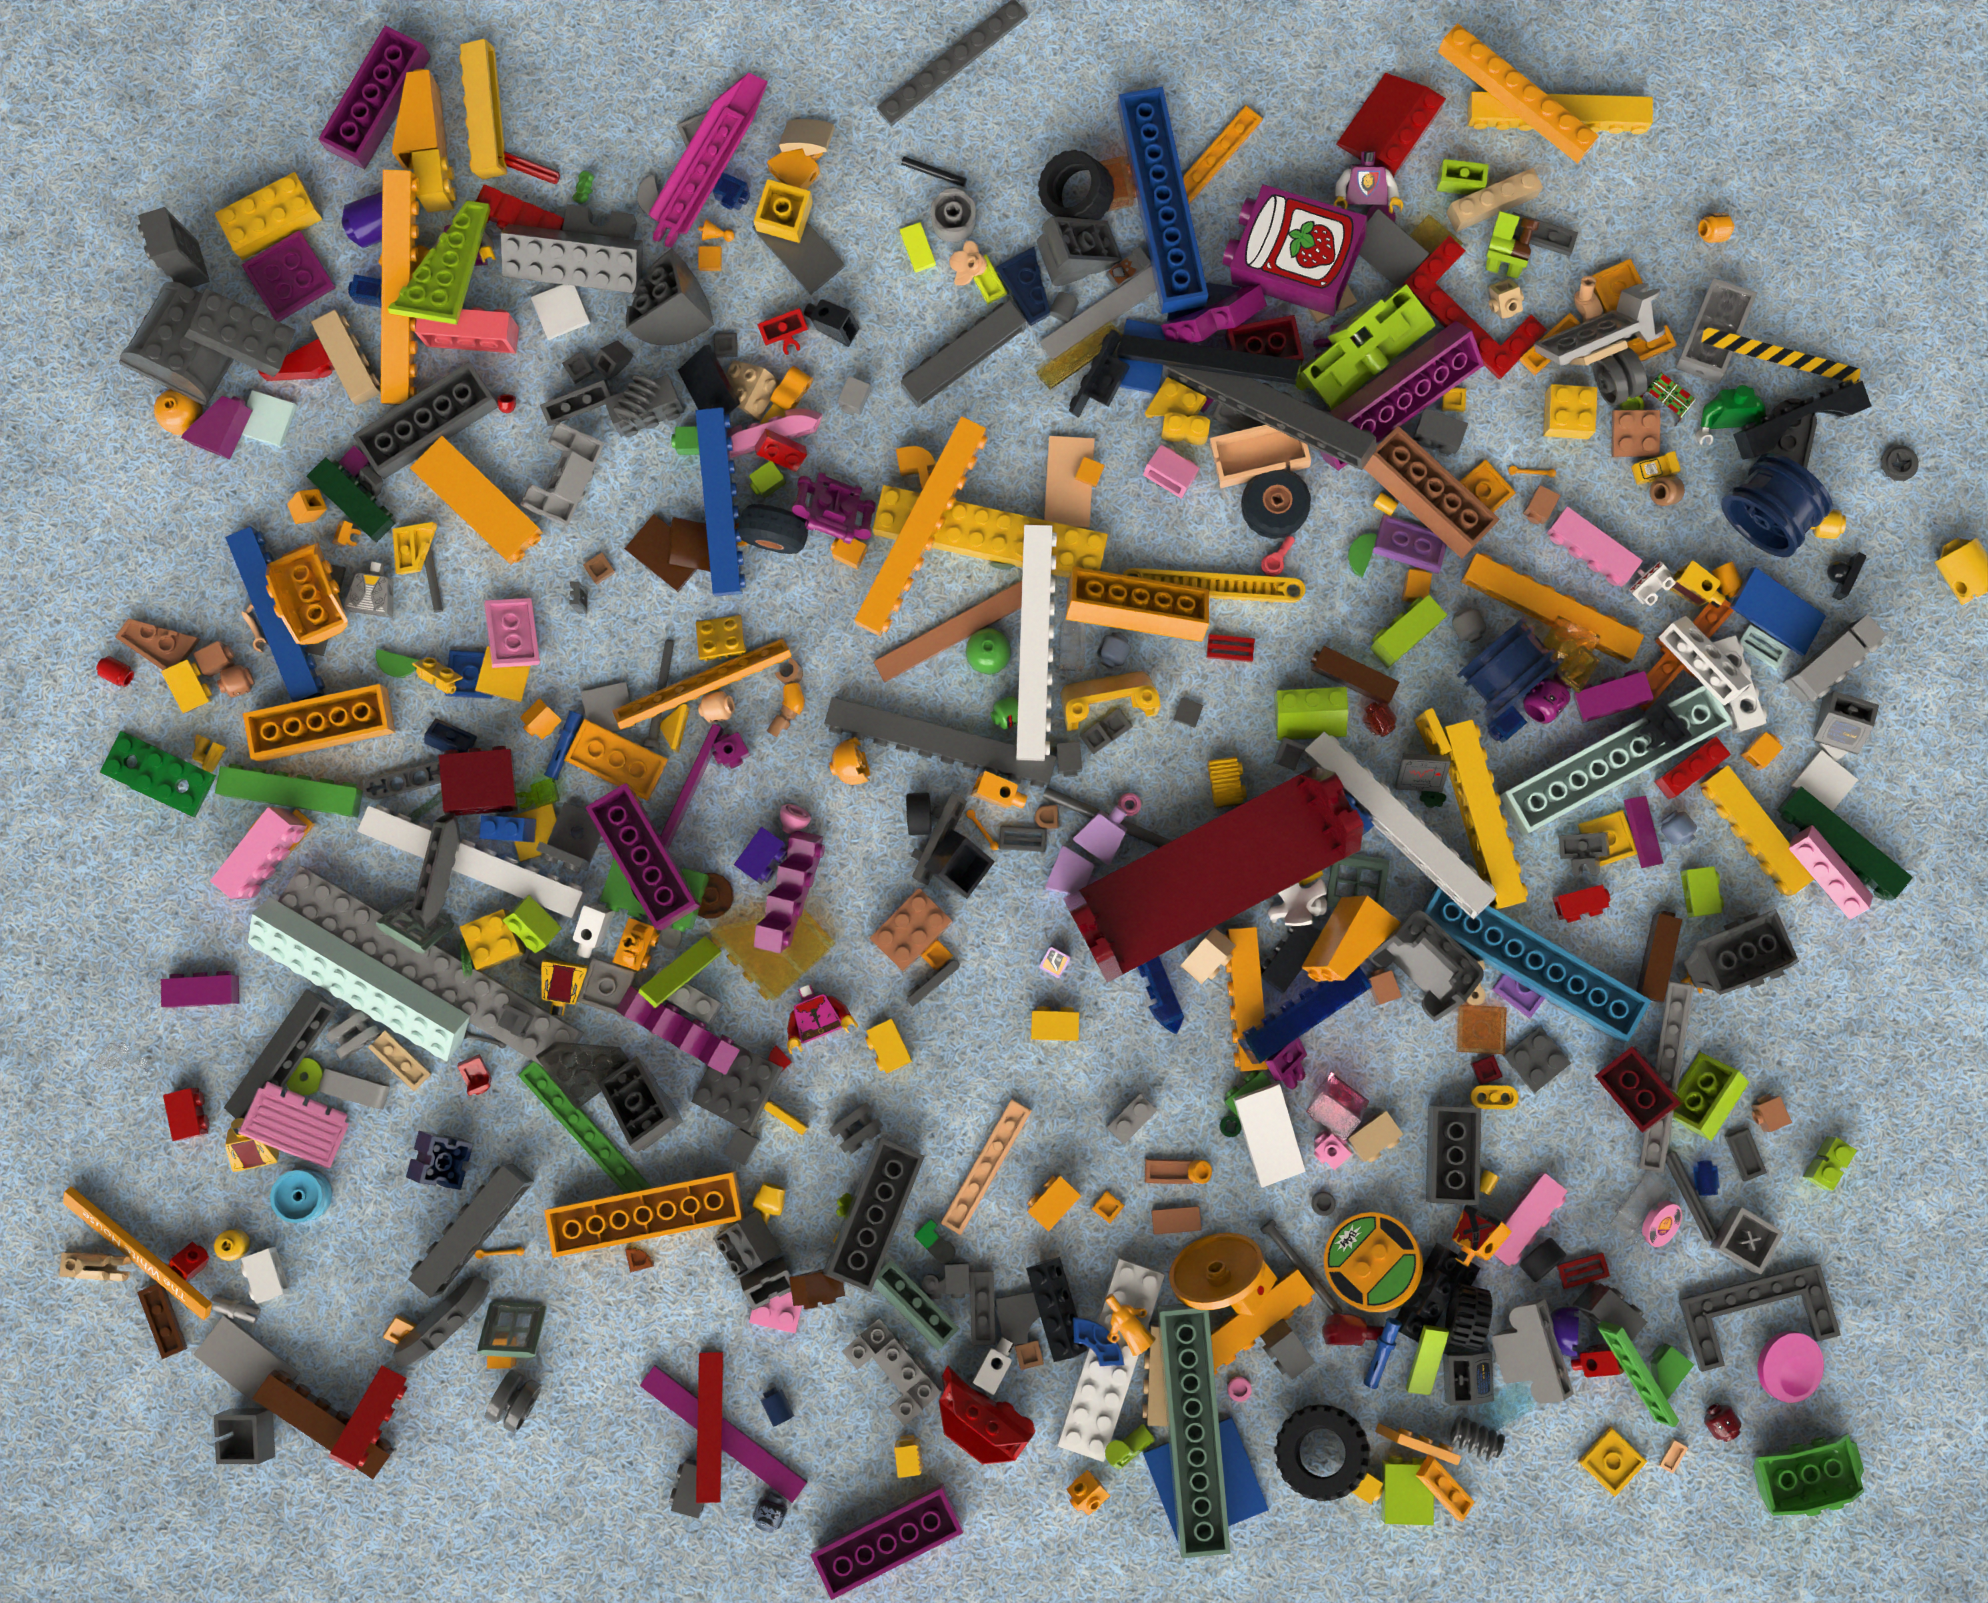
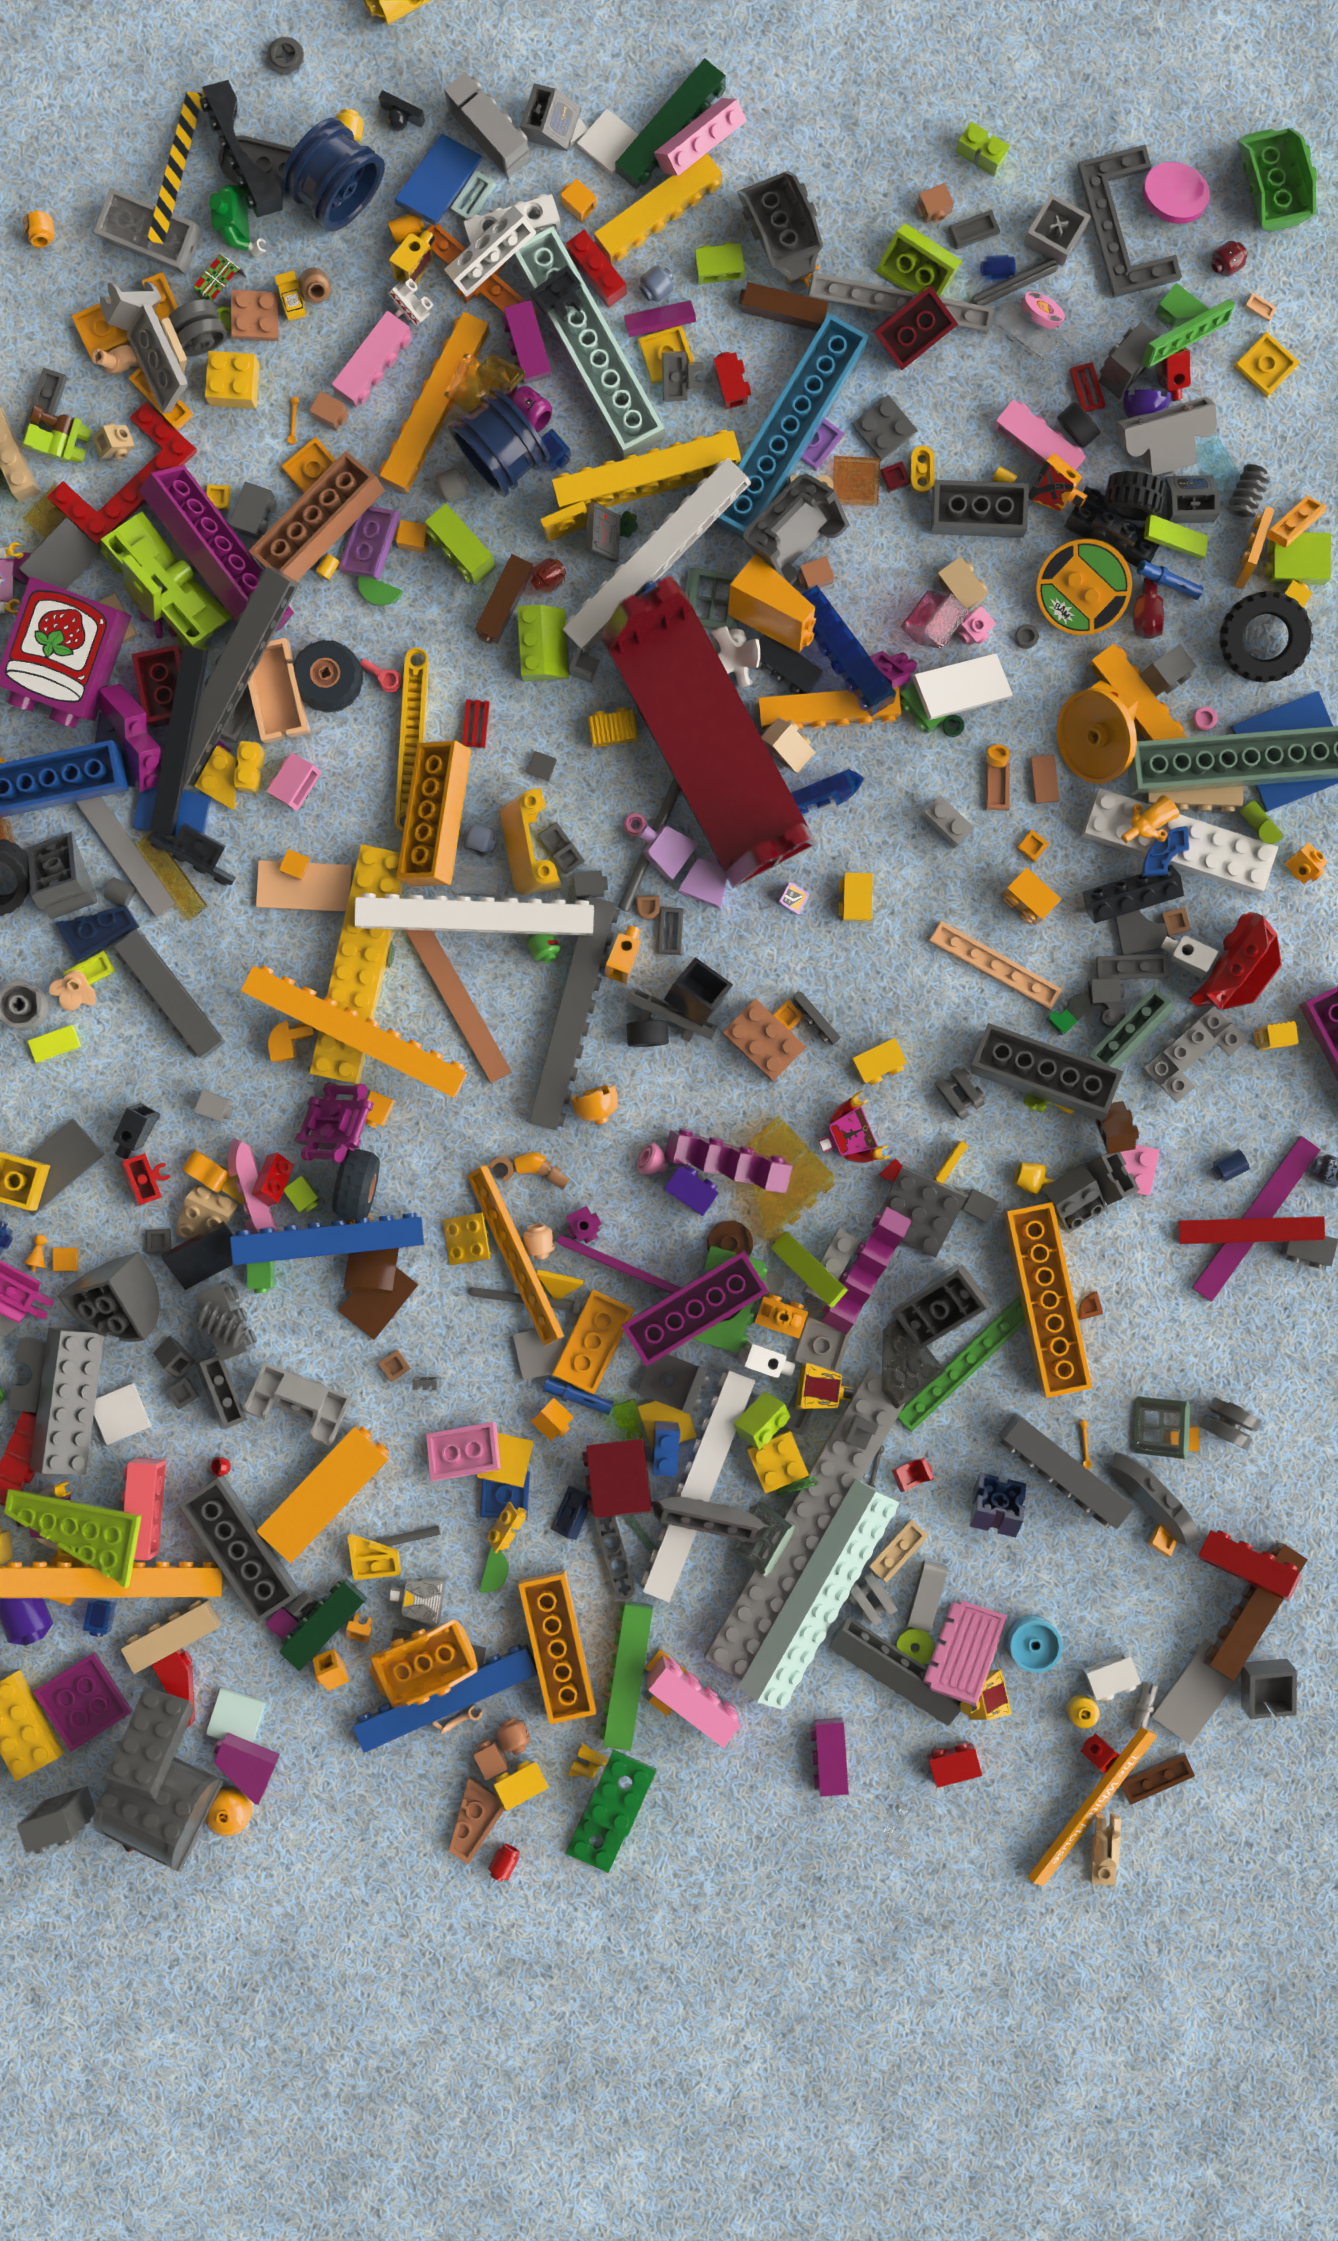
camera: 90 degrees left, 5 degrees up
(971, 815) = (647, 982): light orange hinge -> none
(988, 651) = (479, 967): bright green cylinder -> none
(1128, 268) = (79, 825): leg -> none
(1270, 1228) = (1051, 688): dark grey bar -> none

